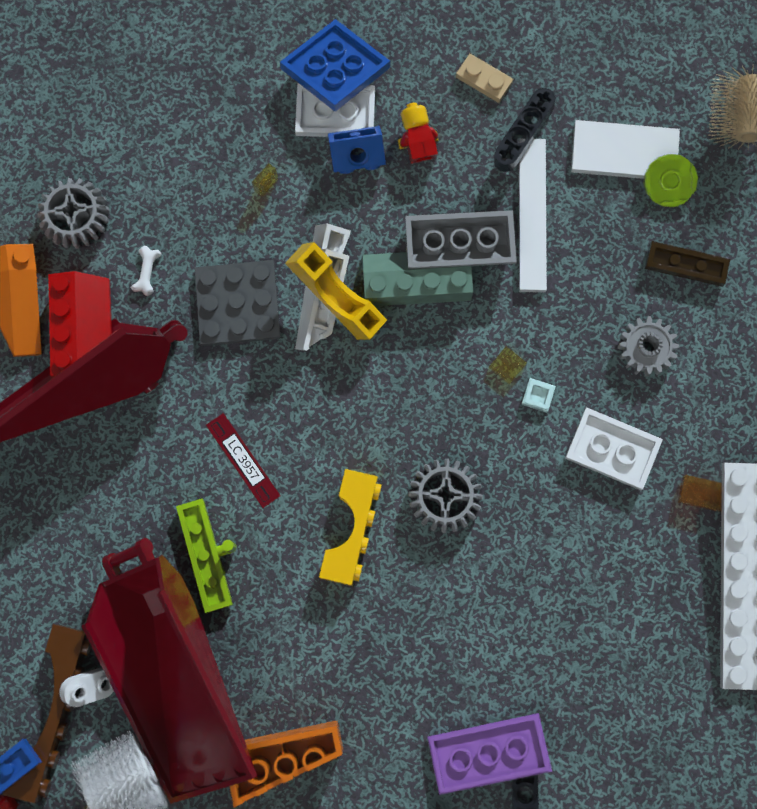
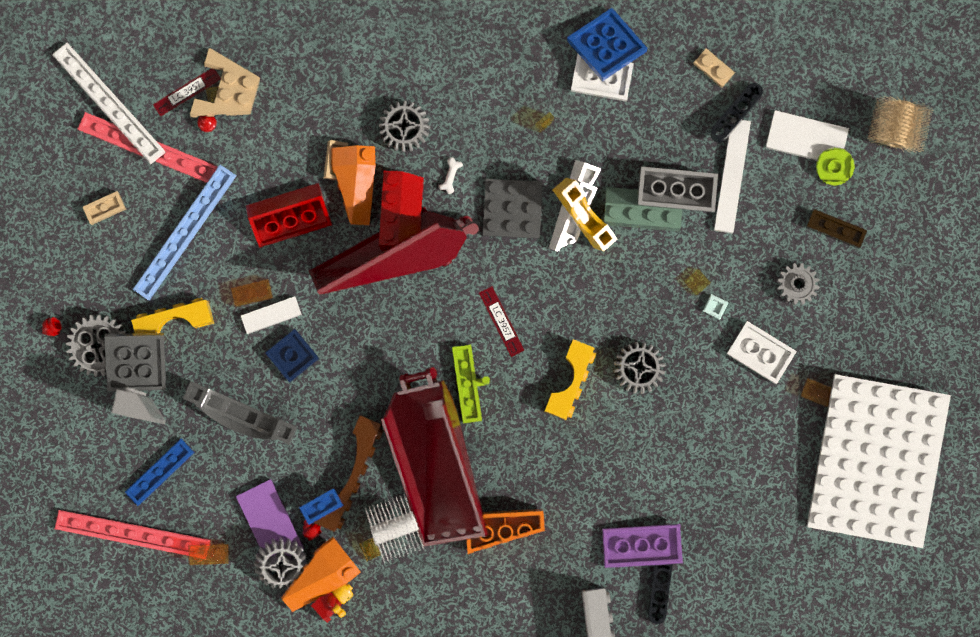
camera: 10 degrees right, 5 degrees up
(90, 687) = (379, 460): white plate -> none
(368, 139) = (606, 103): blue brick -> none
(419, 136) = (660, 108): red piece -> none

